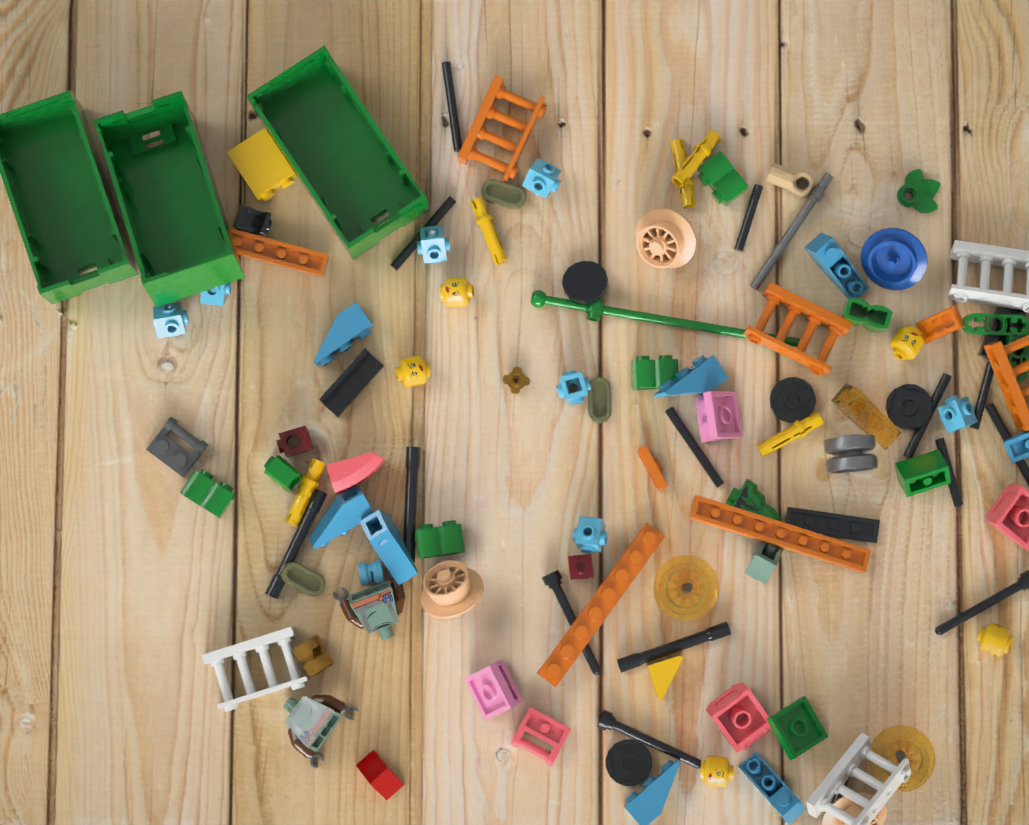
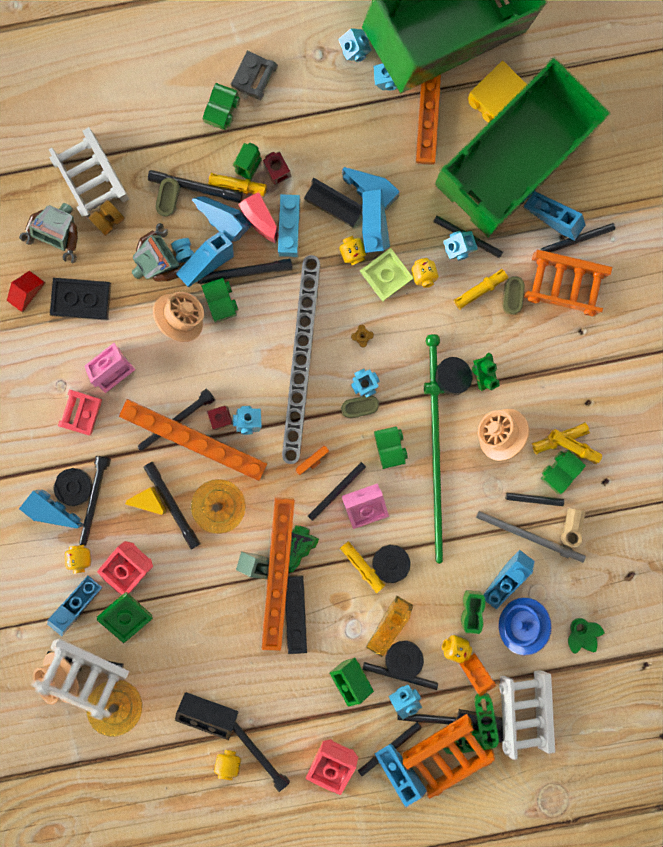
camera: 80 degrees right, 5 degrees up
(252, 220) = (450, 95): black bracket -> none
(368, 439) = (289, 225): none -> medium azure arch
(386, 338) = (374, 222): none -> dark azure slope
(403, 709) = (80, 299): none -> black tile
(420, 126) = (556, 215): none -> dark azure slope
(449, 337) = (386, 274): none -> yellowish green plate
(522, 449) = (298, 350): none -> light grey beam
(542, 178) = (533, 323): medium azure brick -> none
(589, 244) = (486, 372): none -> green hips
(700, 378) = (394, 486): dark azure slope -> none
(816, 316) = (463, 570): orange fence -> none
(850, 451) = (354, 620): flat silver wheel -> none
(933, 654) = (206, 716): none -> black panel
(953, 486) = (344, 708): black bar -> none

